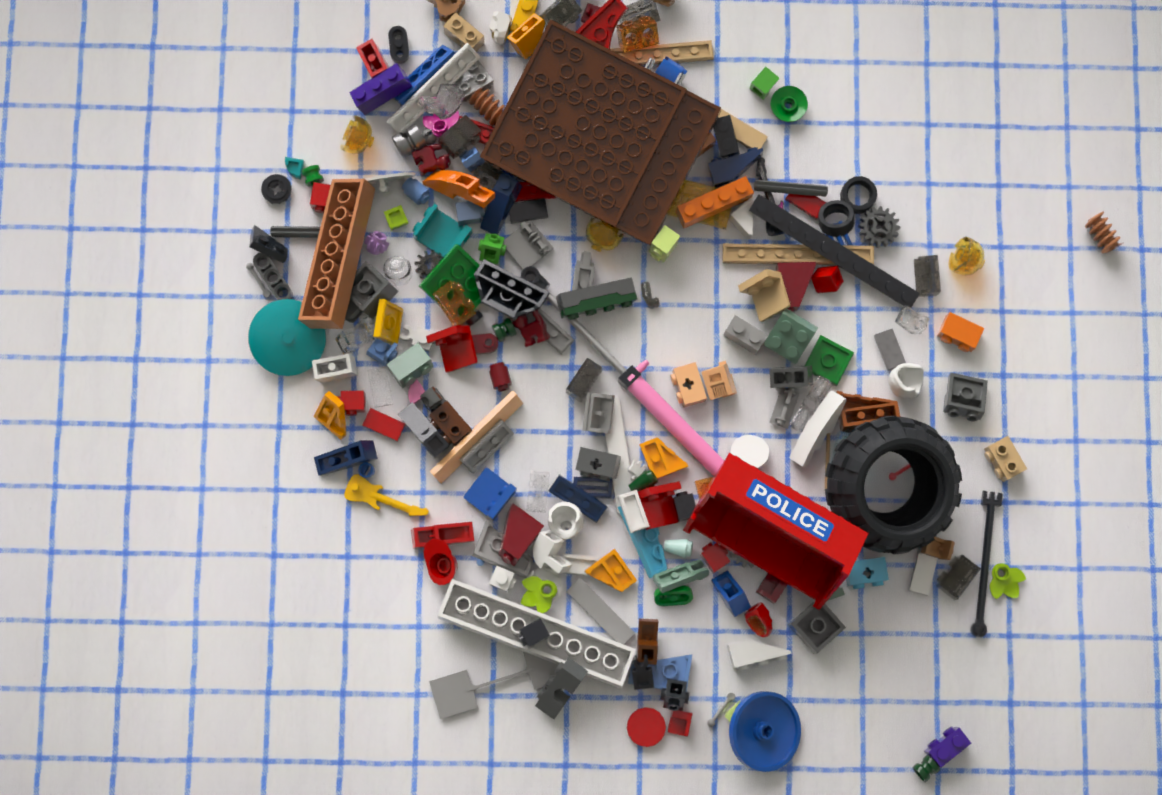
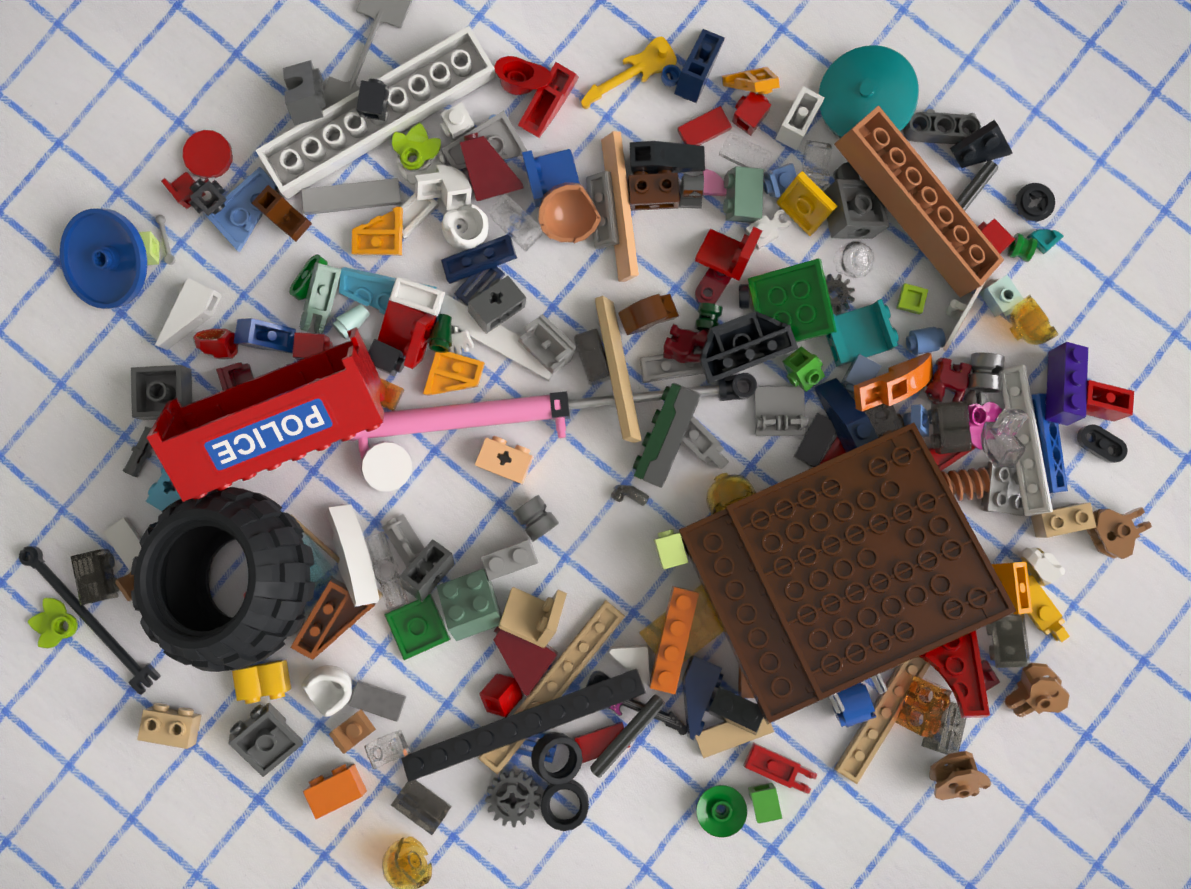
camera: 140 degrees right, 5 degrees up
(353, 165) = (1001, 296): none -> light aqua brick
(376, 243) = (900, 257): lavender gear -> none
(451, 306) = (774, 276): clear orange brick -> none
(500, 376) = (663, 276): dark red brick -> none
(507, 462) = (568, 213): none -> nougat cylinder
(531, 367) = (648, 313): none -> reddish brown brick
(580, 357) = (618, 370): none -> tan tile
(642, 674) = (253, 181): black plate -> none
(709, 335) = (535, 518): none -> flat silver wheel
(719, 381) = (483, 494): light nougat piece -> none
(738, 91) = (777, 767): none -> red hinge
(862, 612) = (139, 454): none -> dark grey pin
(918, 349) = (352, 731): none -> medium nougat bracket
(931, 416) = (262, 680): none -> yellow brick

